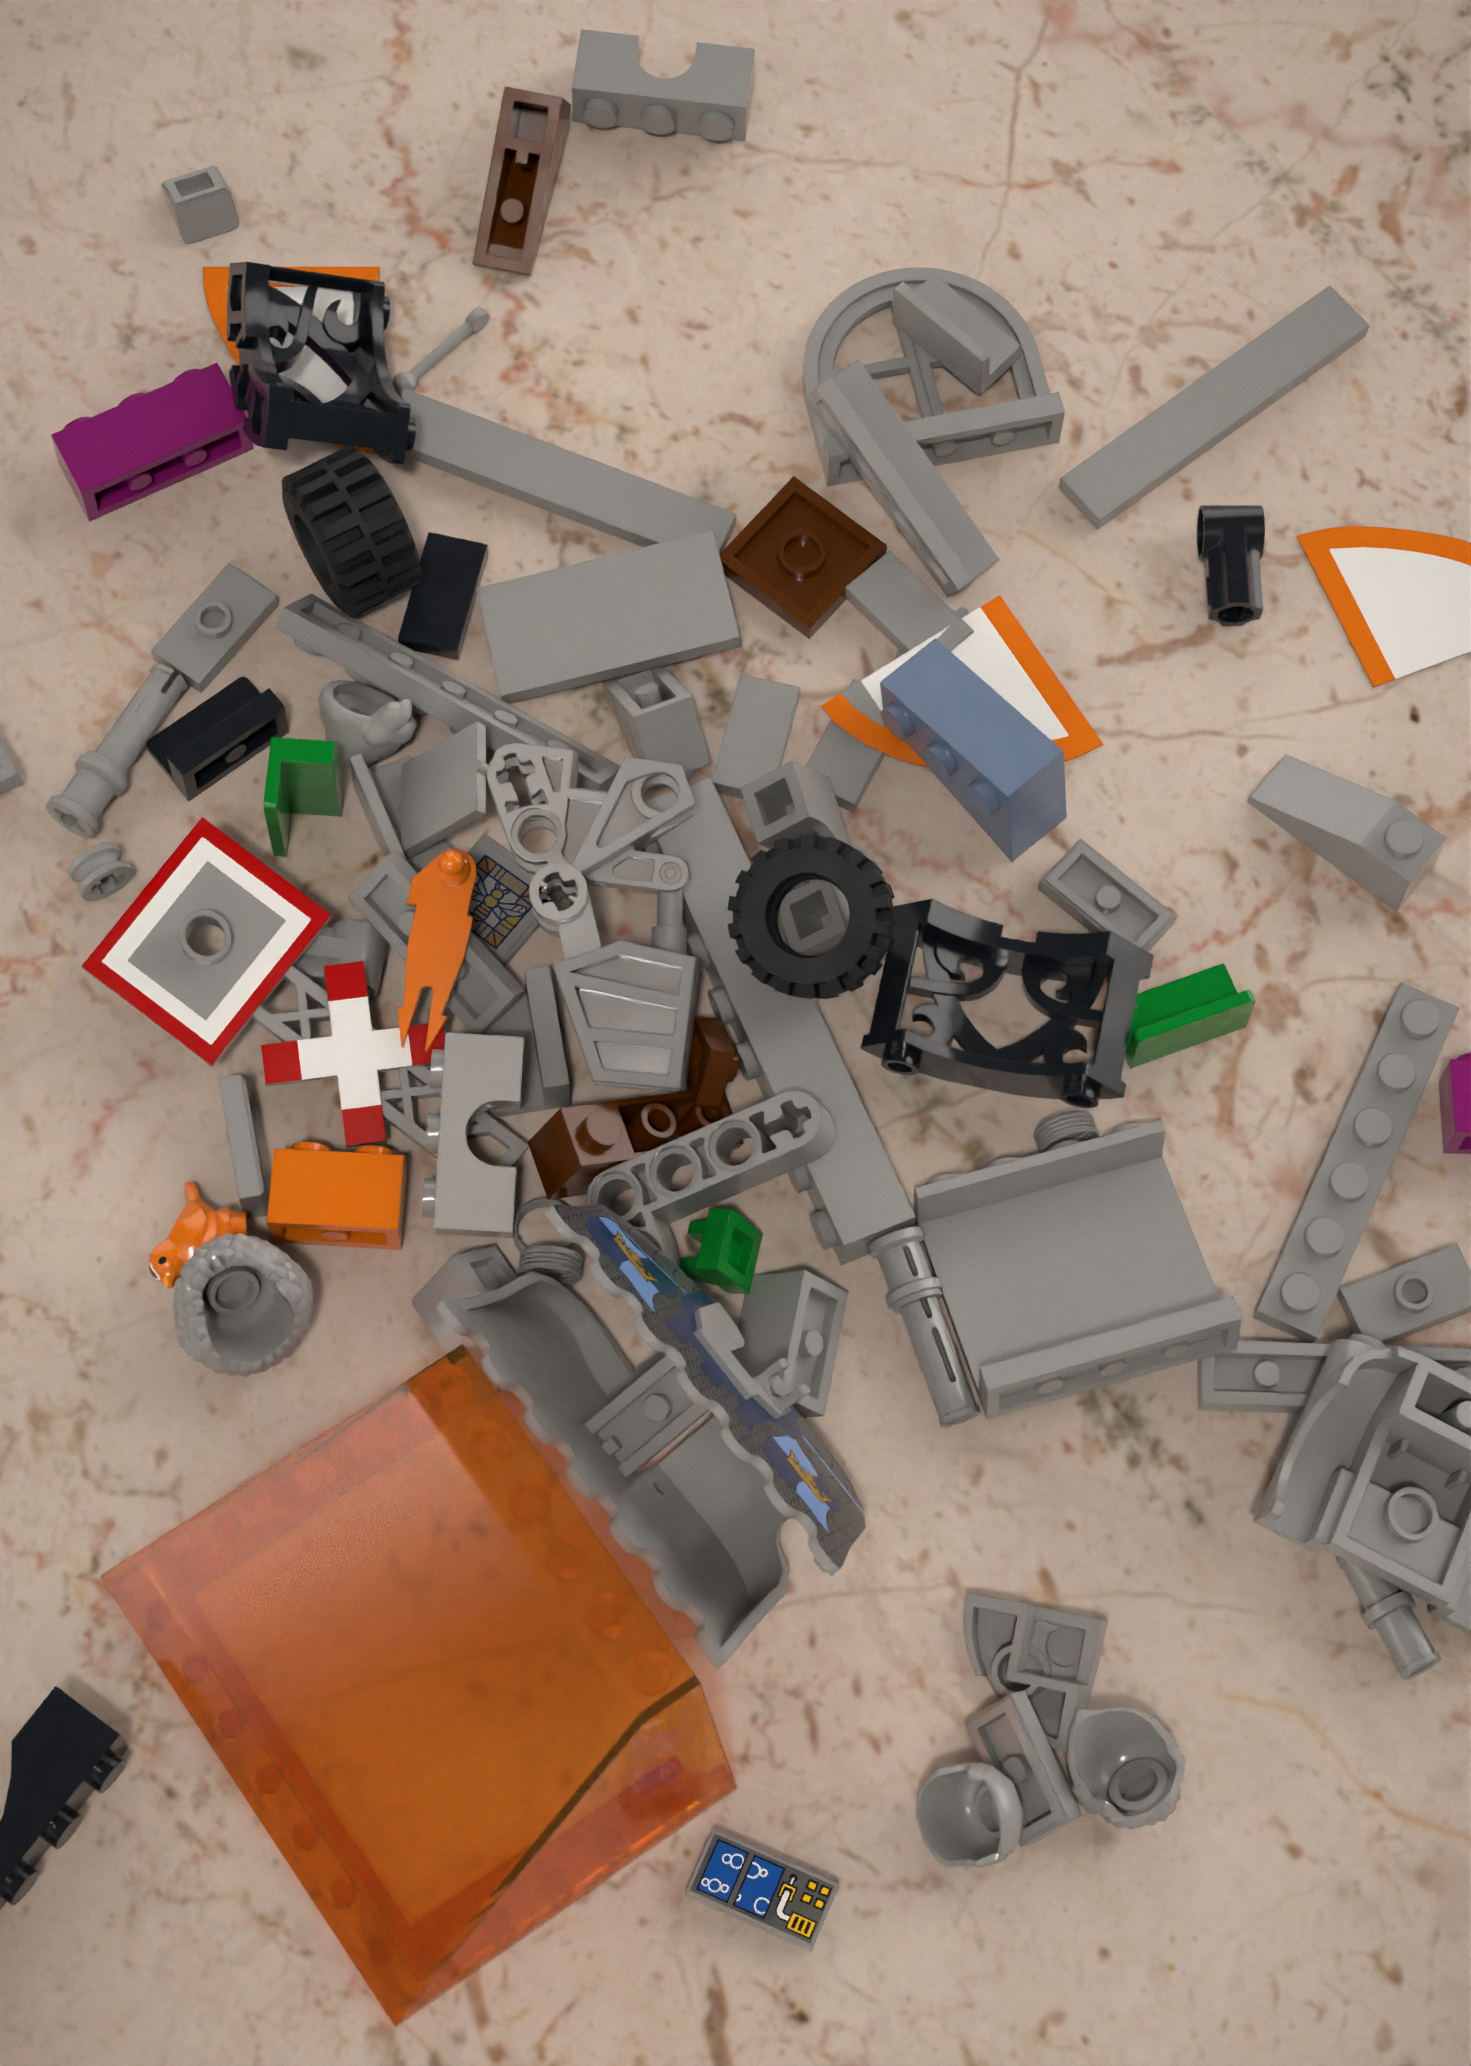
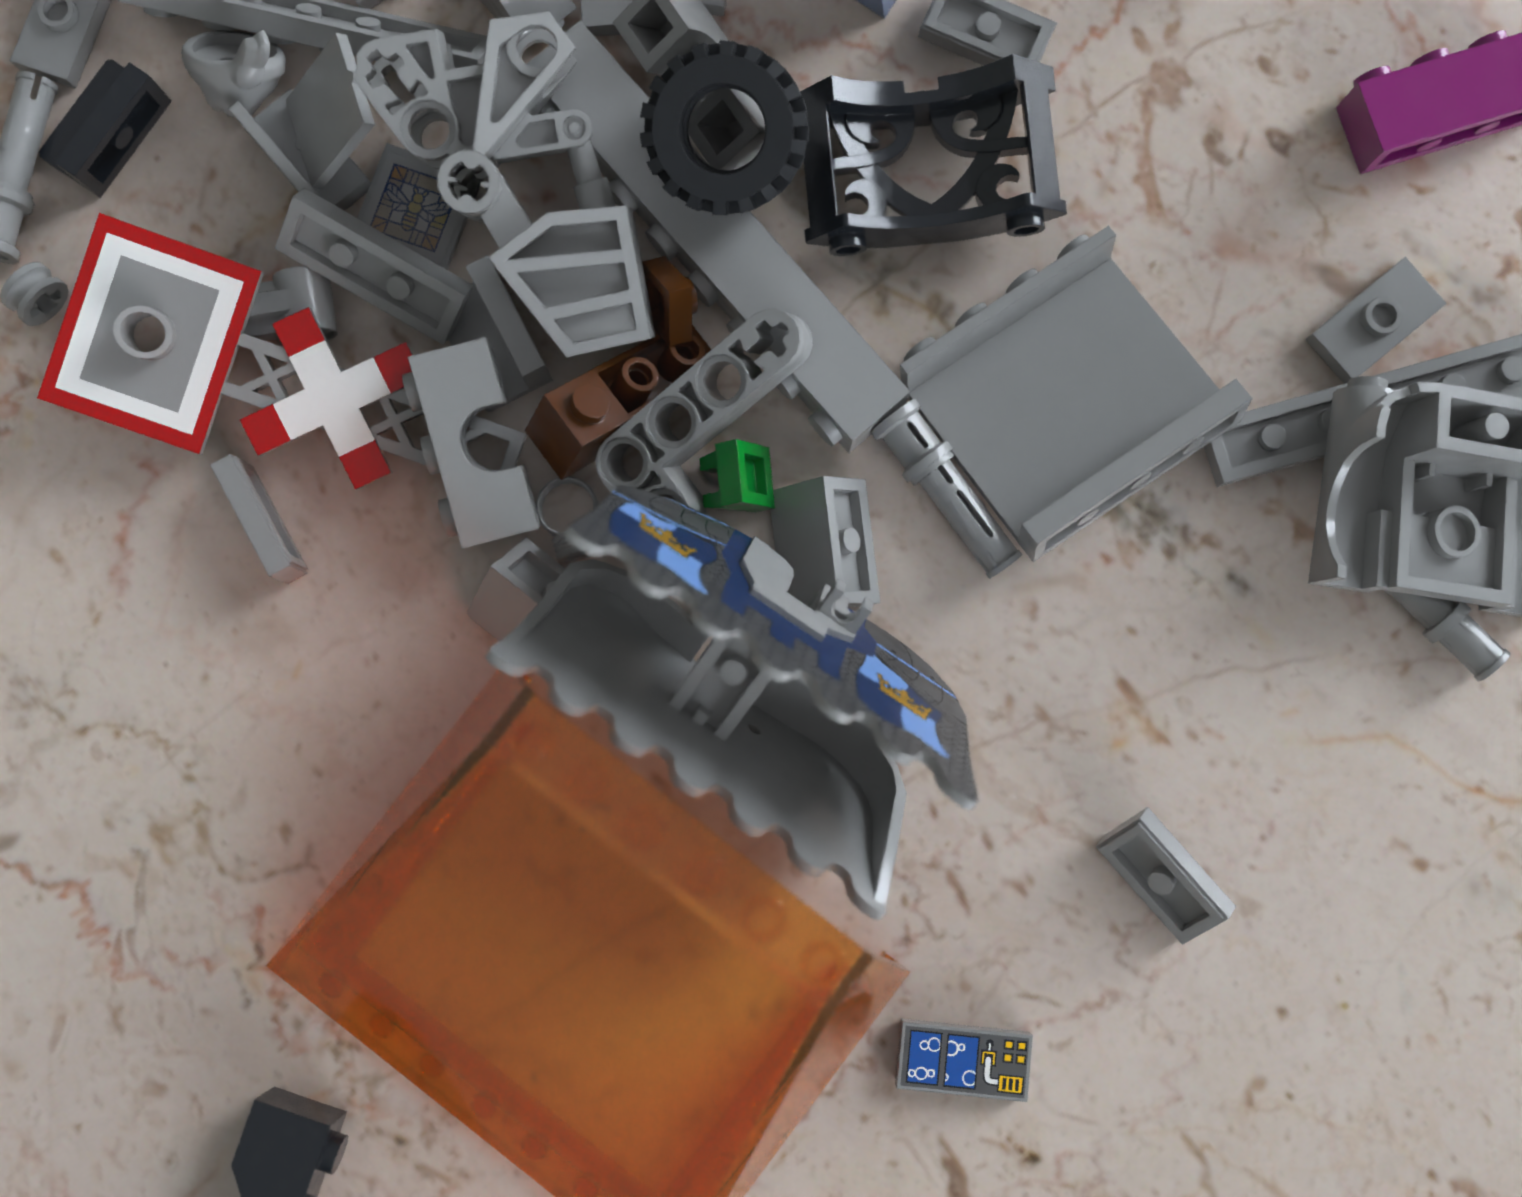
camera: 15 degrees left, 15 degrees up
(194, 1226) = (249, 623): orange animal -> none
(241, 1305) = (305, 678): light grey hair -> none
(300, 780) = (186, 145): green panel -> none
(337, 1196) = (363, 539): orange brick -> none
(437, 936) = (370, 260): orange piece -> none
(969, 1815) = (1134, 938): light grey hair -> none
(1035, 1651) = (1142, 765): light grey brick -> none
(1073, 1131) = (1024, 262): light grey axle -> none
(1124, 1766) = (1261, 849): light grey hair -> none
(1186, 1014) = (1096, 111): green panel -> none
(1356, 1164) = (1288, 208): light grey plate -> none

